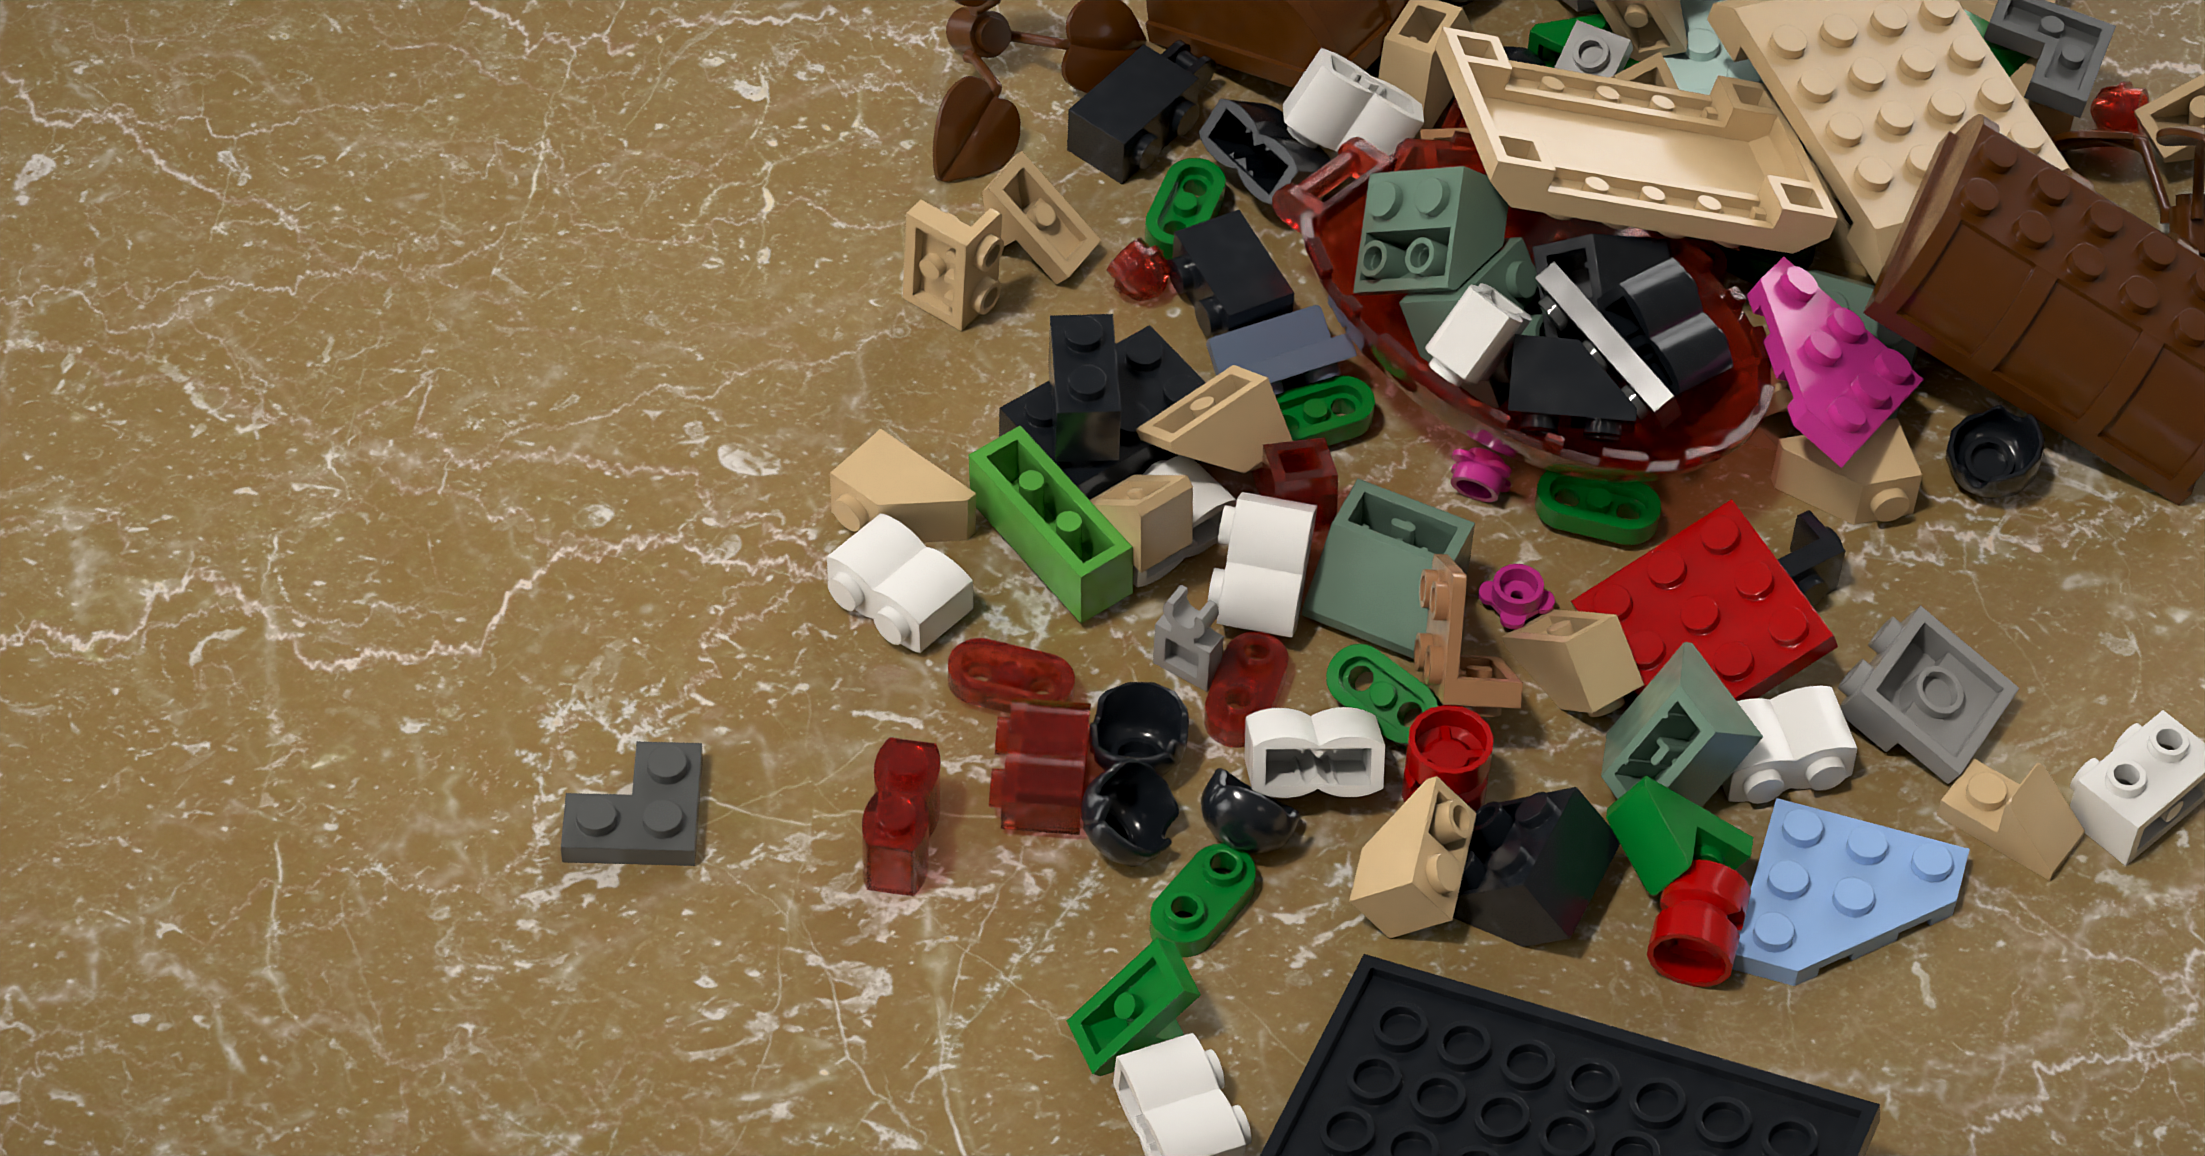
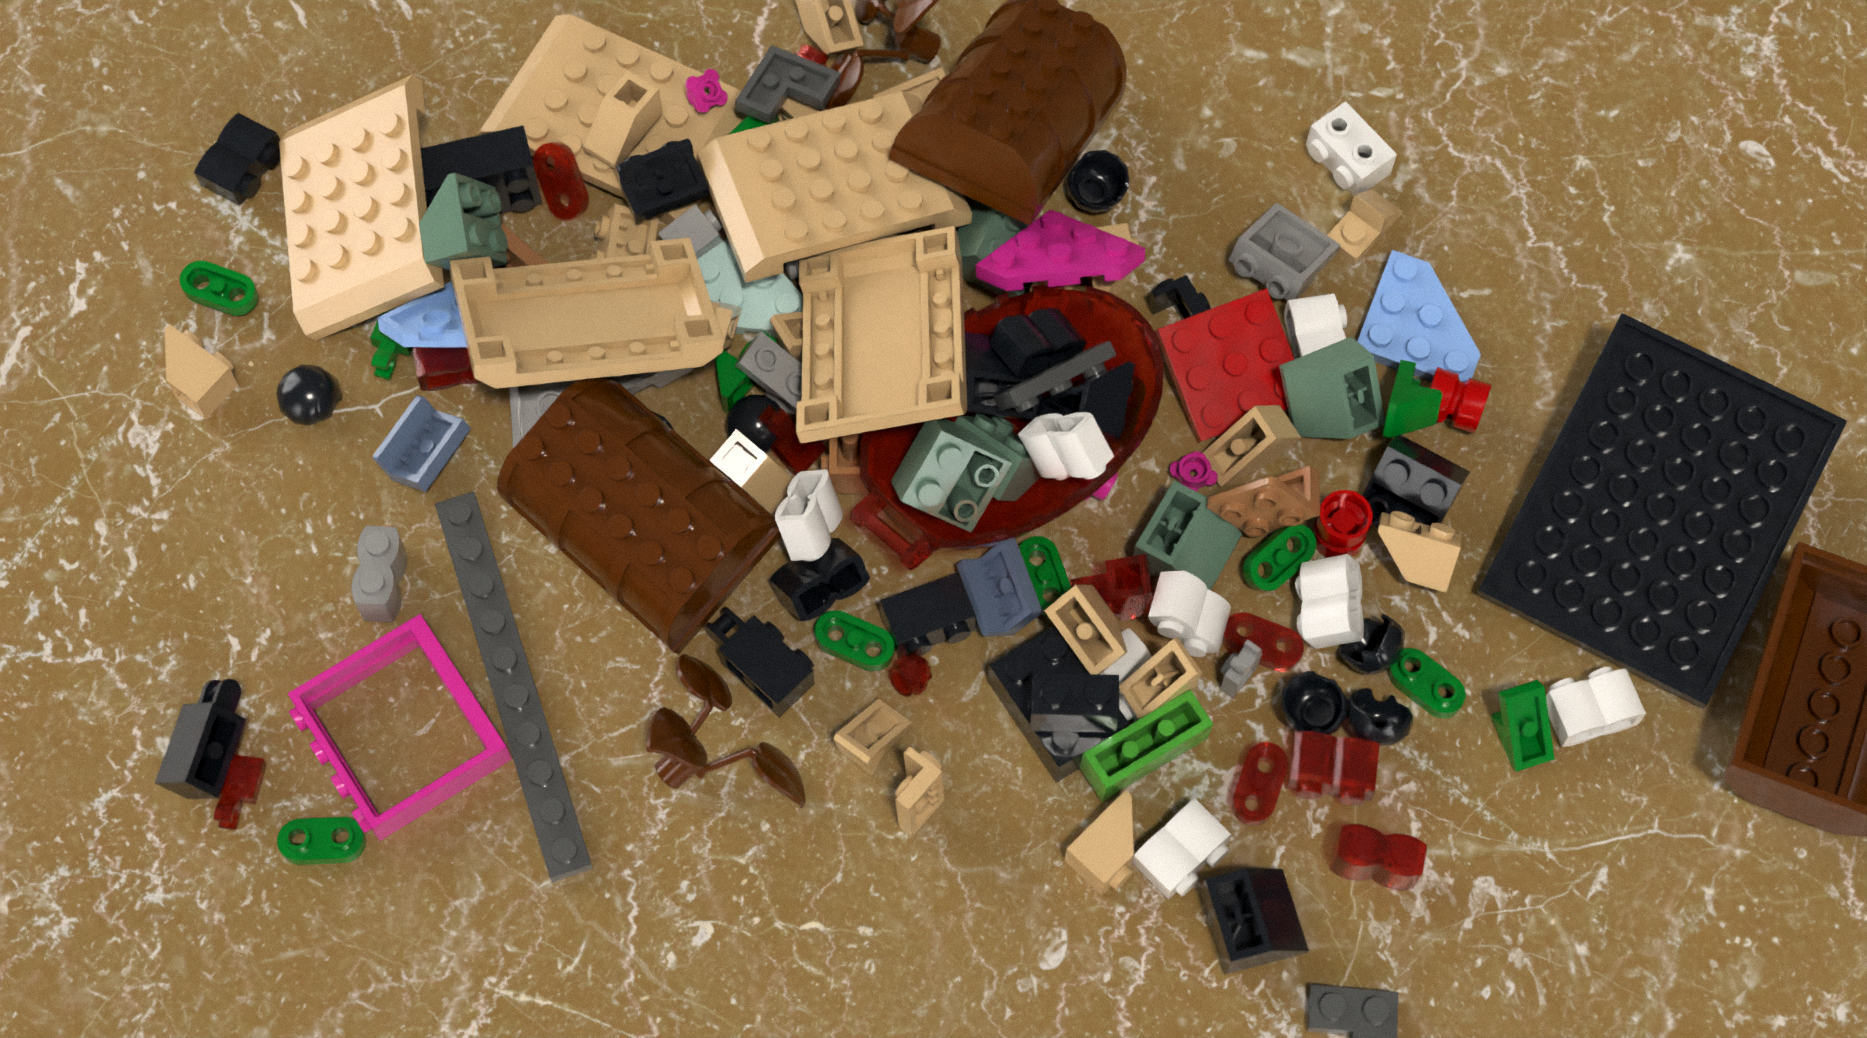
camera: 85 degrees left, 15 degrees up
(794, 658) = (1252, 918): none -> black slope

